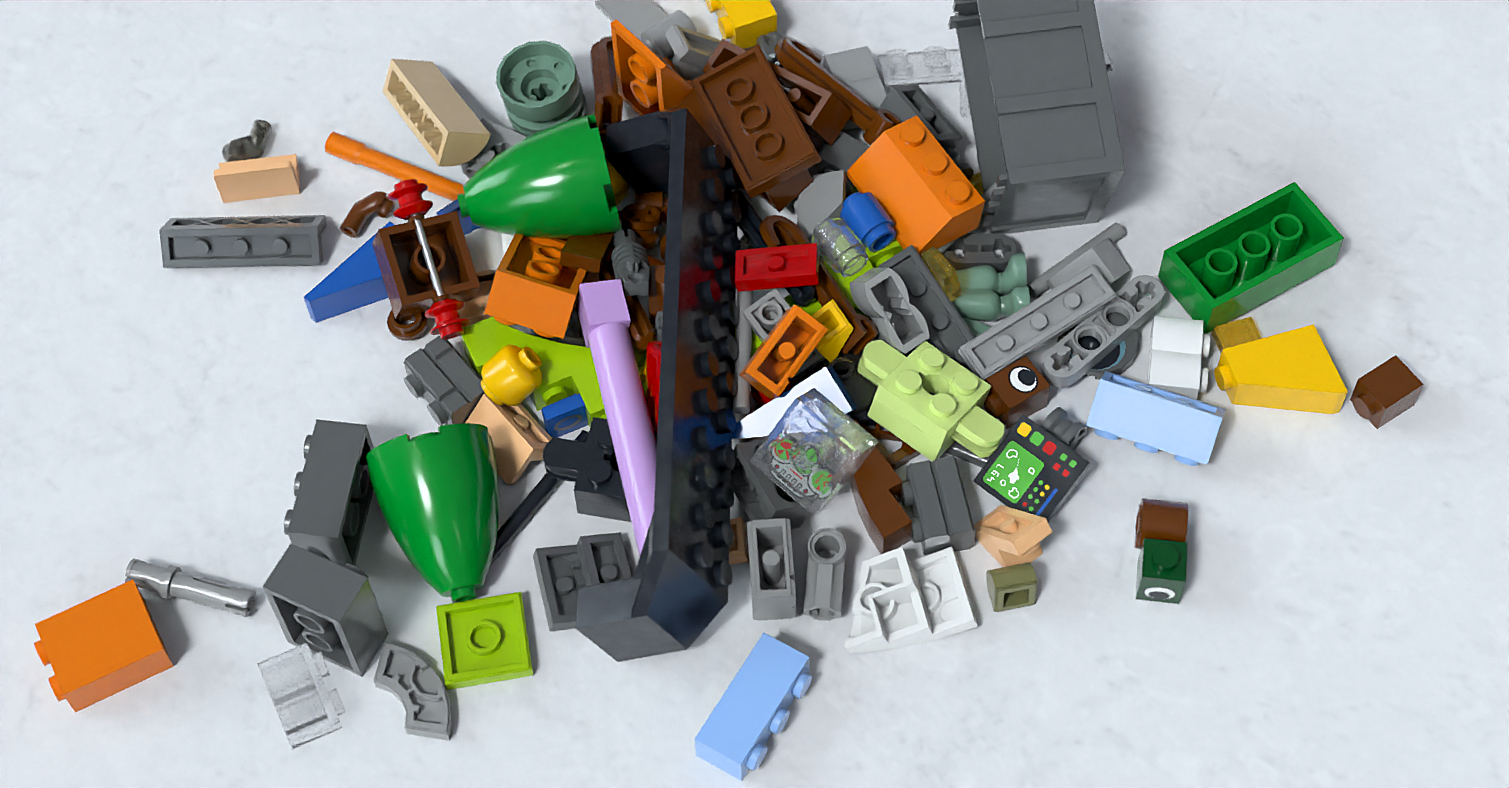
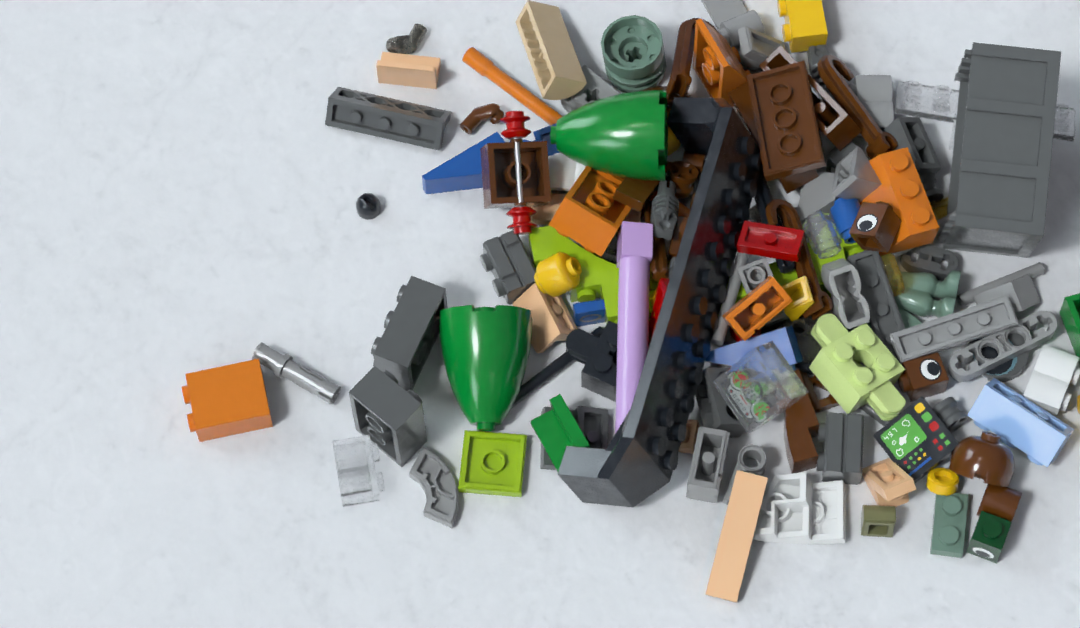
camera: 15 degrees right, 5 degrees up
(239, 360) = (363, 208): none -> black hinge
(410, 331) = (491, 219): reddish brown plate -> none
(560, 573) = (557, 430): none -> green panel
(753, 707) = (669, 560): light blue brick -> none
(835, 653) = (736, 536): none -> light nougat tile
(861, 166) = (854, 177): none -> light grey slope
(904, 218) = (875, 226): none -> reddish brown brick
(1079, 516) = (942, 481): none -> yellow tile
(1103, 569) = (949, 525): none -> sand green plate
(1126, 472) = (984, 459): none -> reddish brown cylinder

